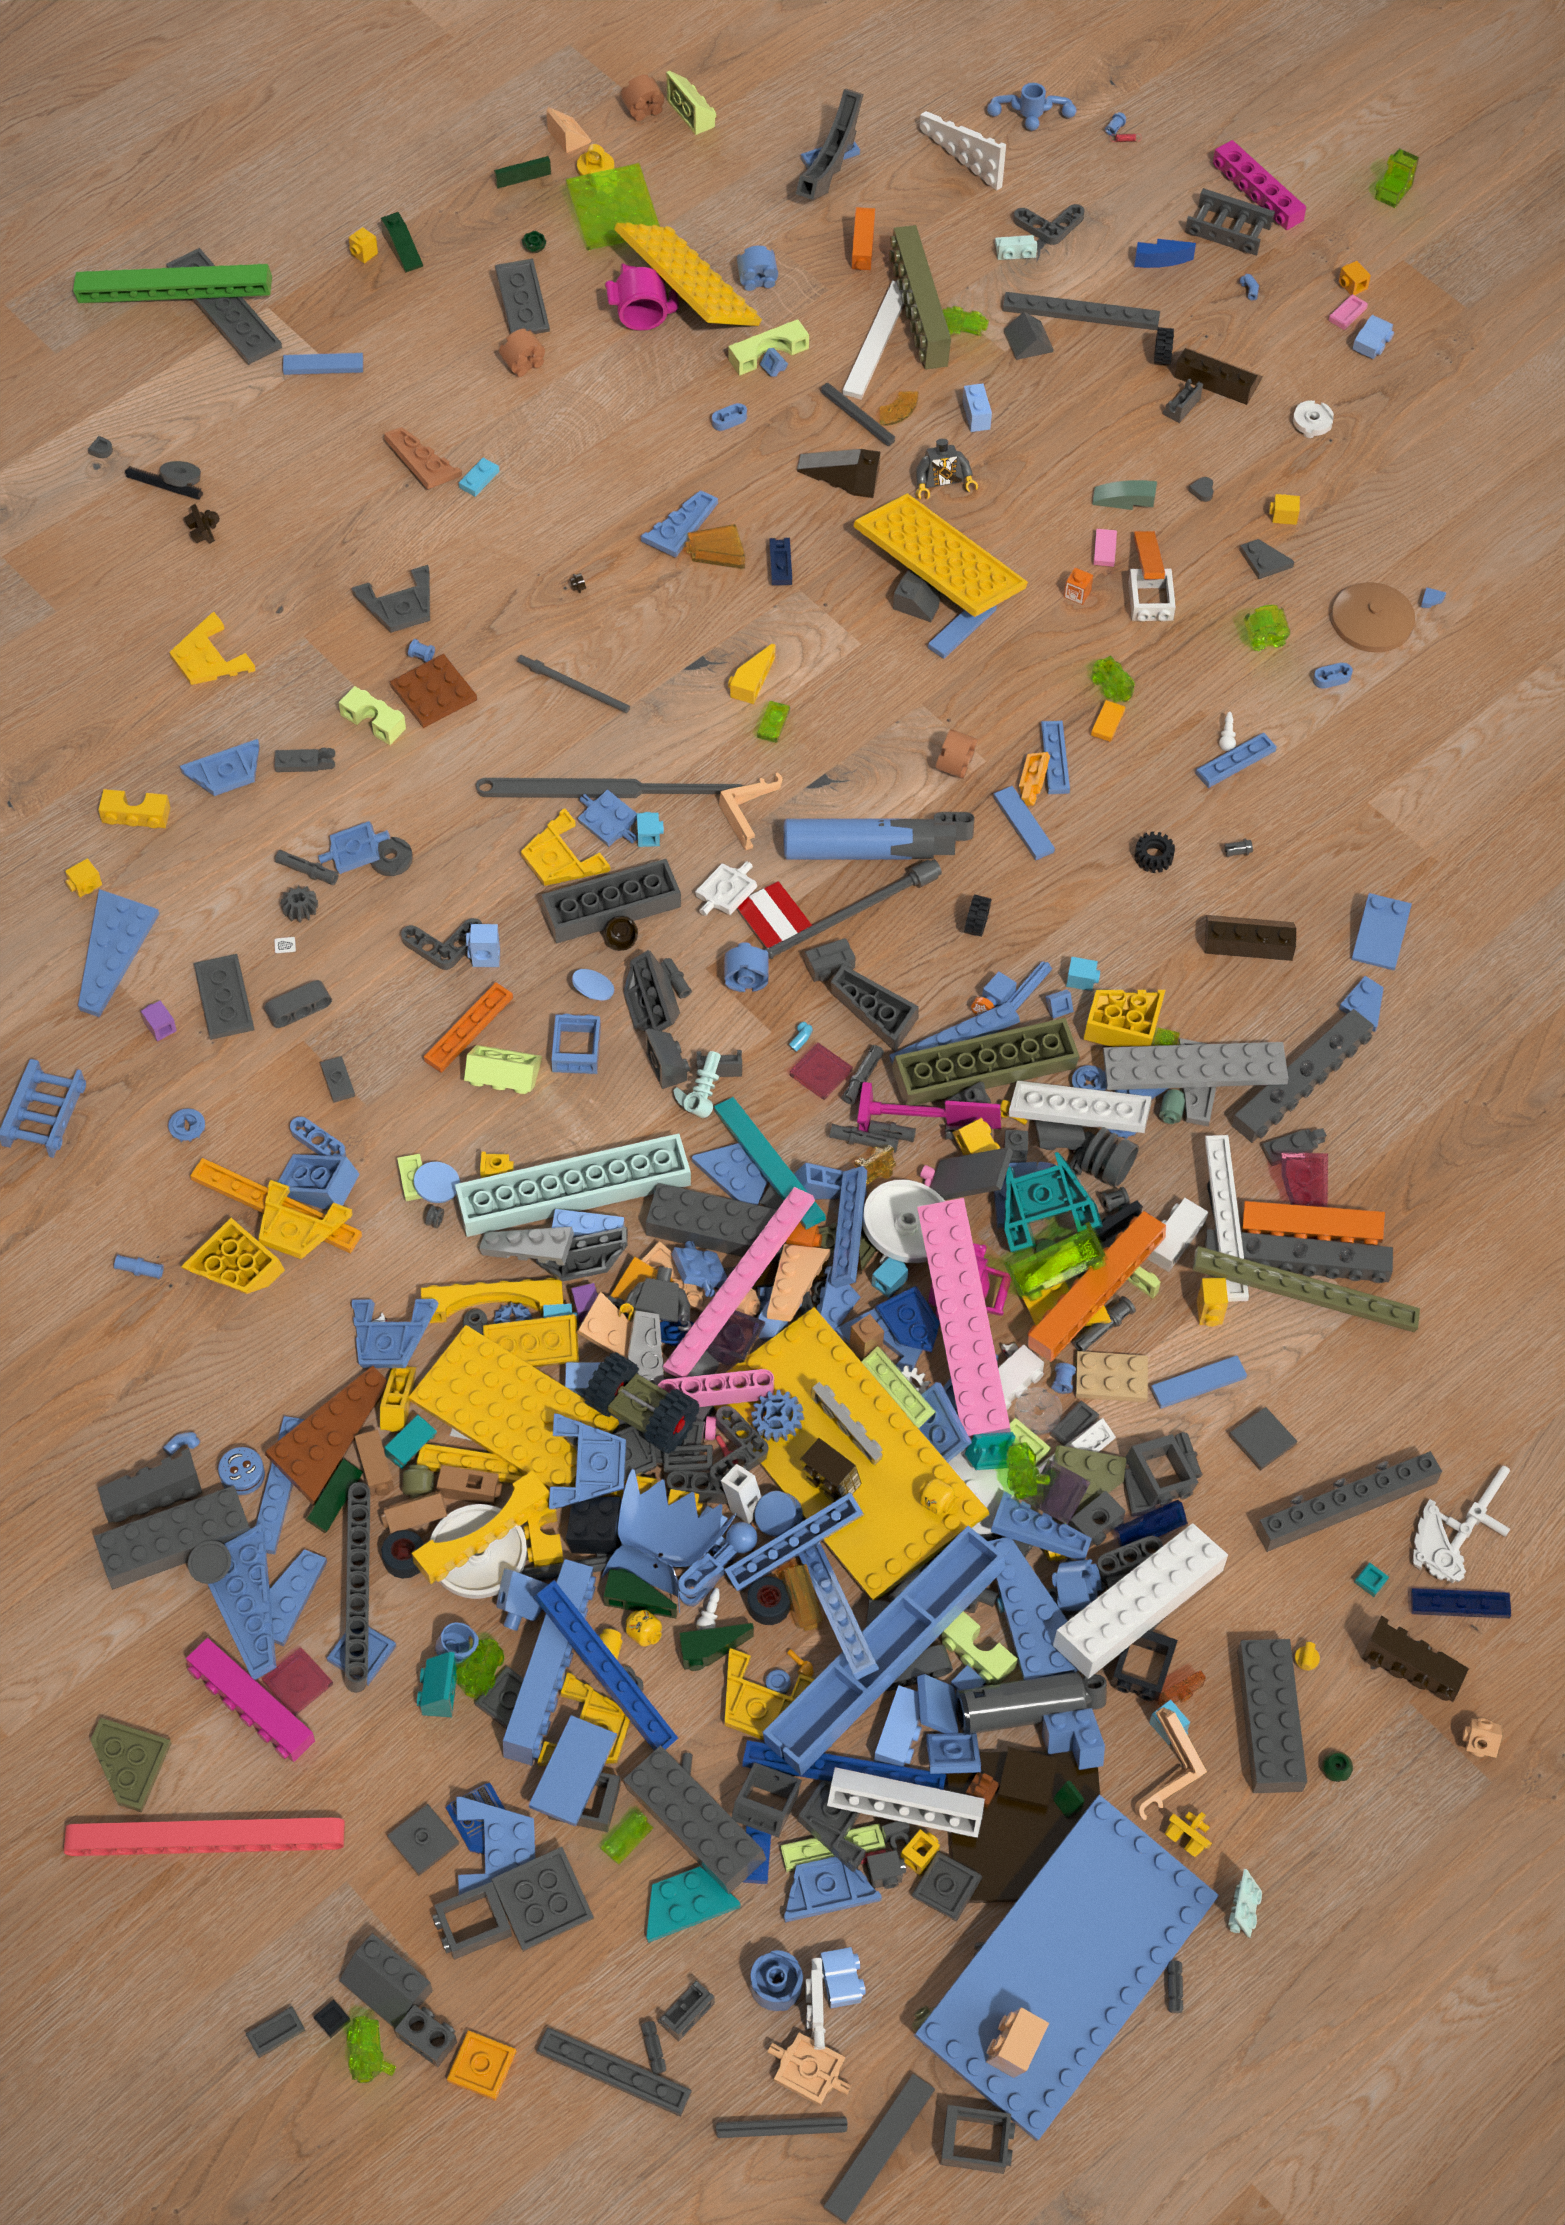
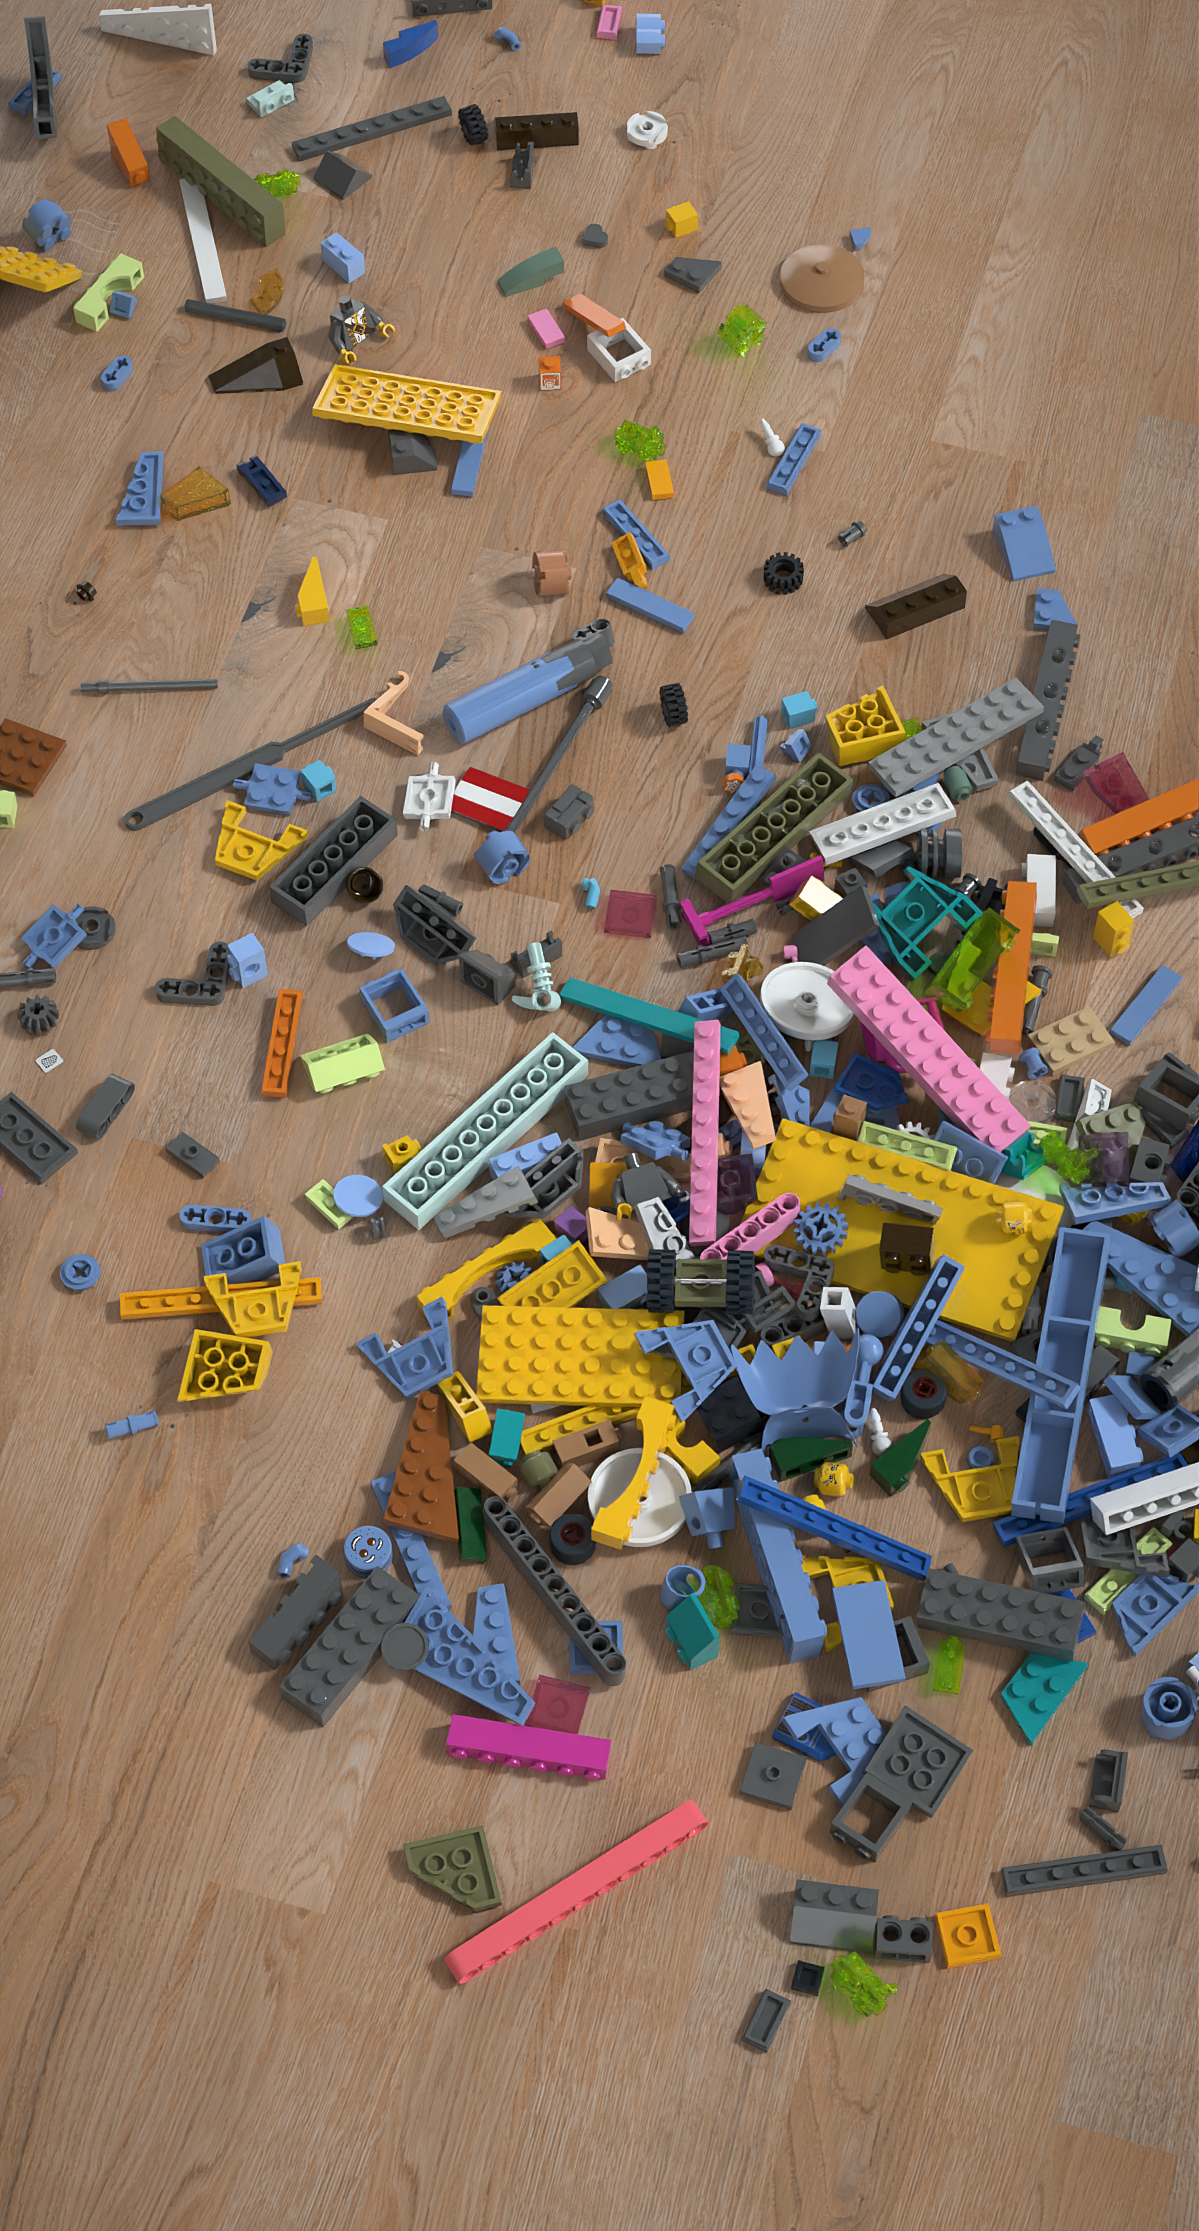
camera: 30 degrees left, 0 degrees up
(877, 1007) = (640, 830): dark grey wedge -> none

